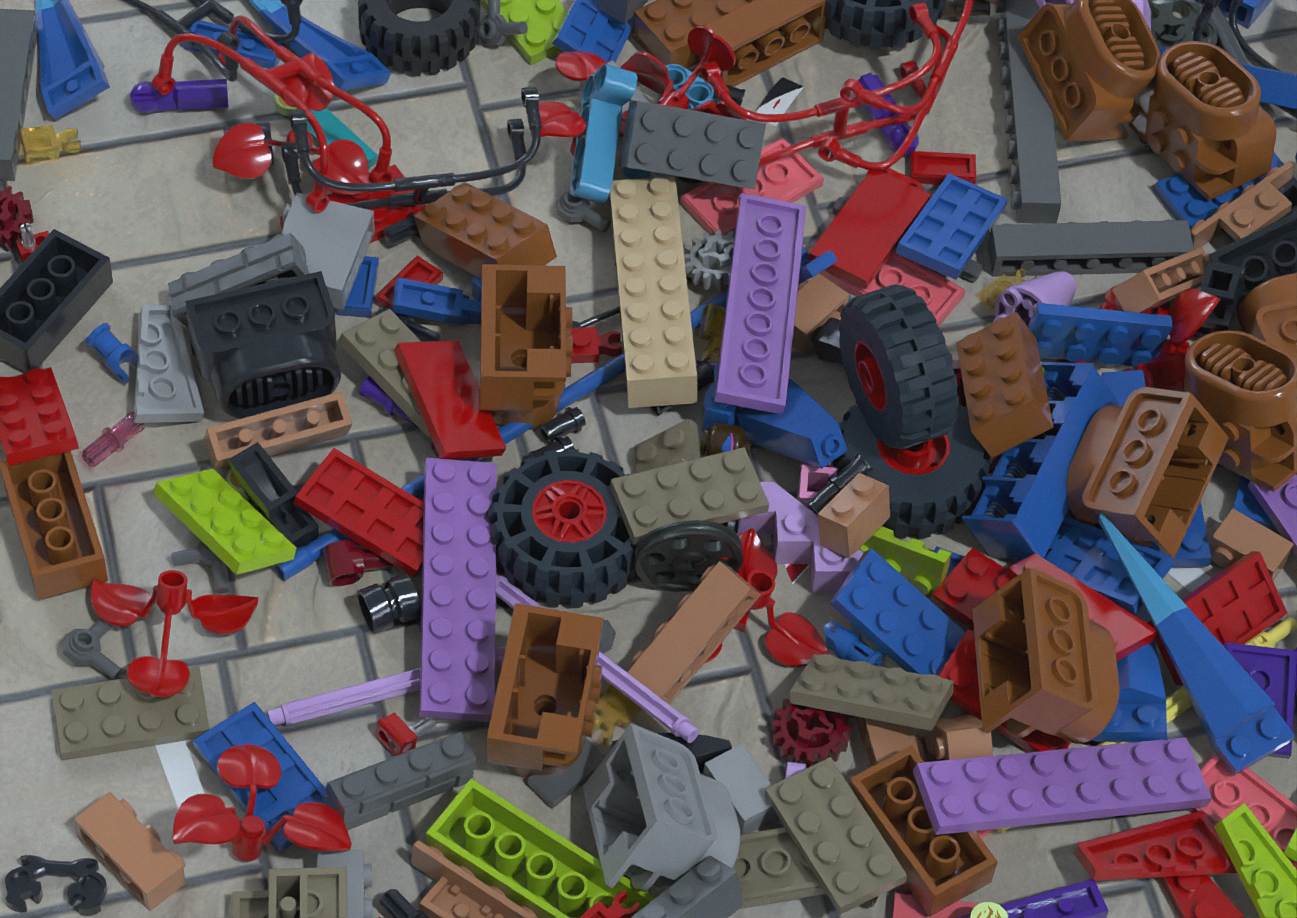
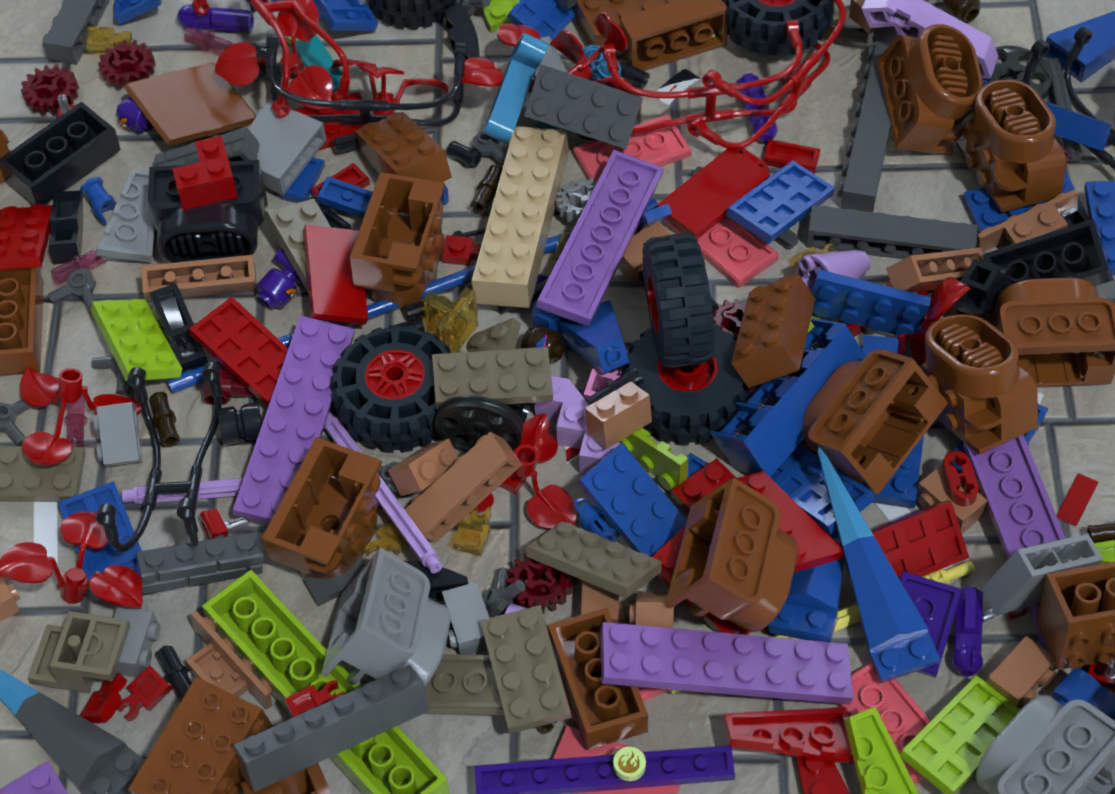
camera: 20 degrees right, 0 degrees up
(79, 390) = (66, 226): none -> black slope
(85, 170) = (126, 63): none -> dark red gear
(120, 235) = (132, 117): none -> dark purple head
(123, 462) = (79, 283): none -> dark grey piece
(180, 640) = (75, 422): none -> clear pink axle
(181, 126) = (206, 40): none -> clear pink axle
(188, 210) = (190, 104): none -> dark orange piece
(244, 643) = (118, 434): none -> light grey brick
(273, 303) = (208, 179): none -> red brick
(289, 614) = (164, 419): none -> dark brown pin
(299, 739) = (187, 506): none -> black bar
(376, 428) = (276, 288): none -> dark purple head
(437, 139) = (374, 71): none -> red plant
(501, 72) = (461, 30): none -> black slope
(558, 224) = (468, 155): none -> black pin
(594, 263) = (487, 189): none -> dark brown pin
(605, 430) = (452, 321): none -> clear yellow bracket
(636, 617) = (423, 467): none -> nougat brick
(713, 688) = (473, 533): none -> clear yellow plate
(770, 757) = (500, 597): none -> dark grey piece
(1262, 521) = (954, 480): none -> red beam

